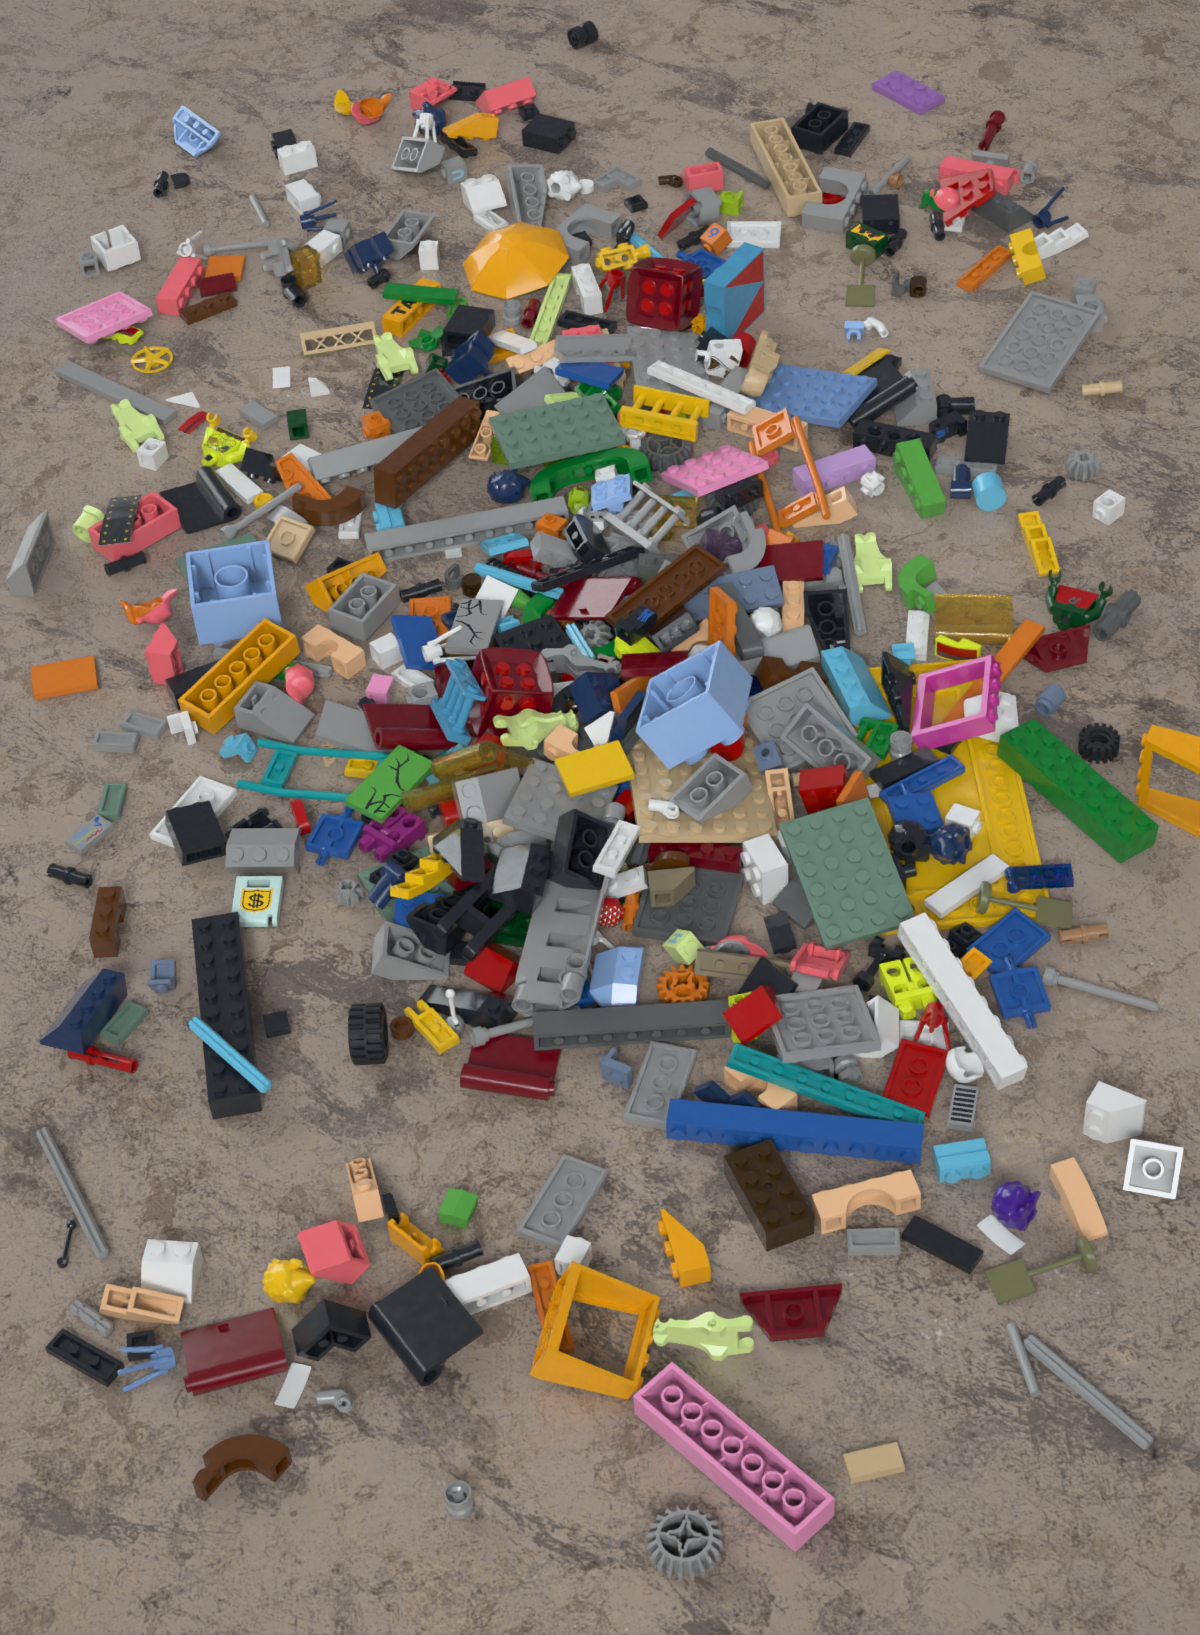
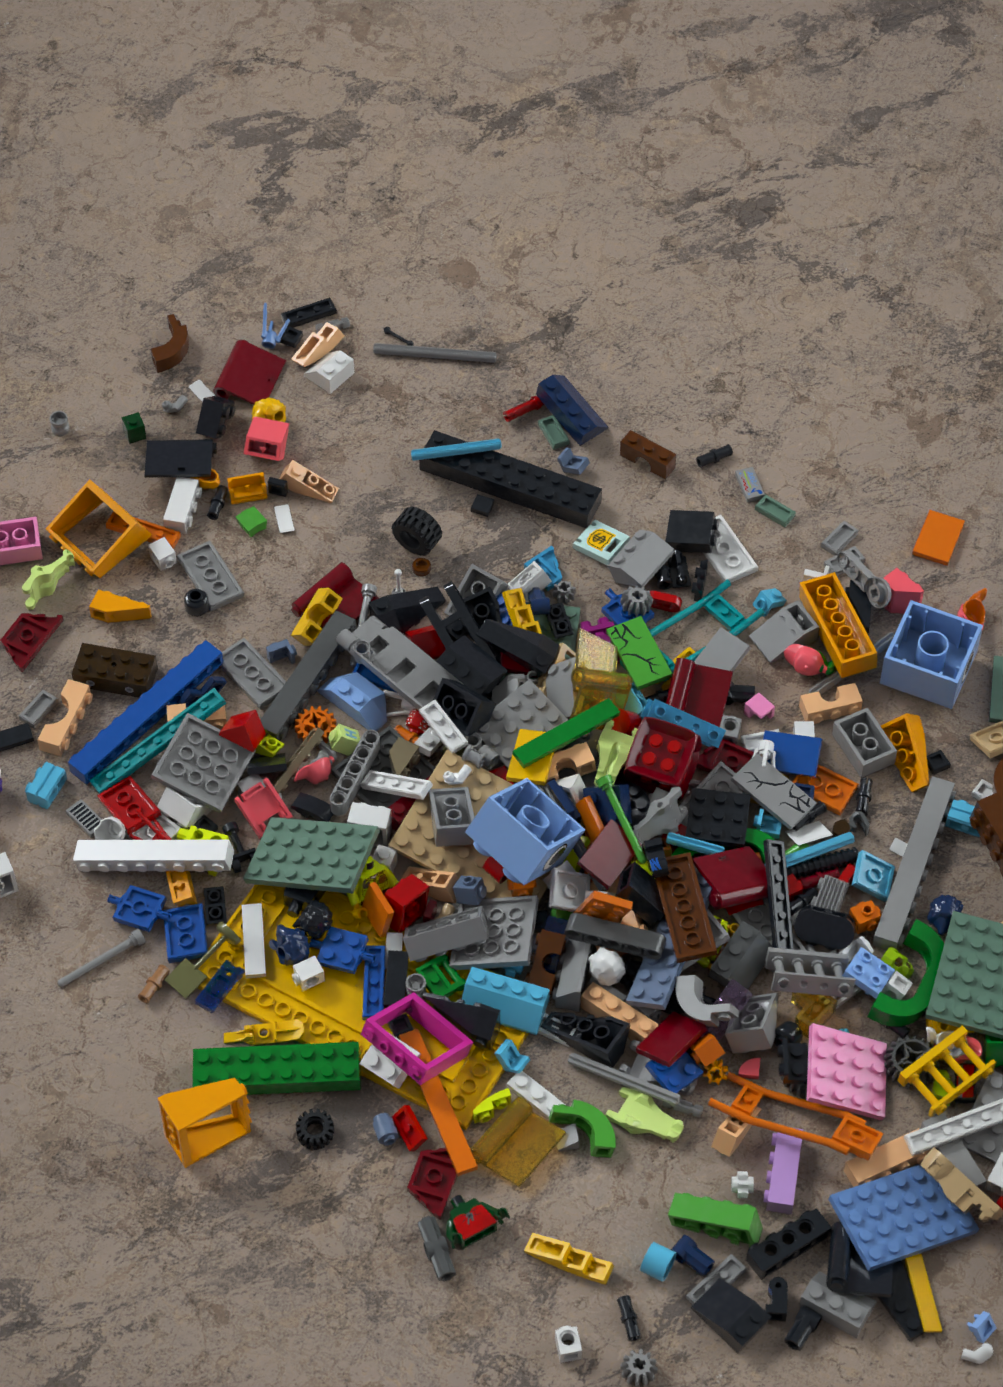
camera: 120 degrees right, 10 degrees up
(172, 673) = (876, 588): none -> light grey beam
(251, 799) = (700, 575): none -> black plate
(323, 820) = (636, 600): none -> light grey gear
(327, 925) = (549, 564): none -> dark azure wing
(361, 916) = (529, 578): none -> white slope
(408, 1409) = (133, 428): none -> dark green brick
(428, 1187) = (284, 518): none -> white sticker
(432, 1027) = (408, 580): yellow hinge -> none
(553, 749) = (566, 733): none -> green tile
(573, 1057) = (322, 604): none -> yellow arch
(592, 678) = (606, 785): none -> bright green piece
(617, 1177) = (196, 602): none -> black head
(630, 810) = (474, 756): none -> light grey bush
(666, 860) = (423, 767): reddish brown piece -> none
(708, 862) = (396, 784): none -> white tile
(717, 910) = (351, 779): none -> light grey beam
(1032, 686) = (409, 1128): none -> red plate
(1045, 826) = (277, 1033): none -> yellow piece

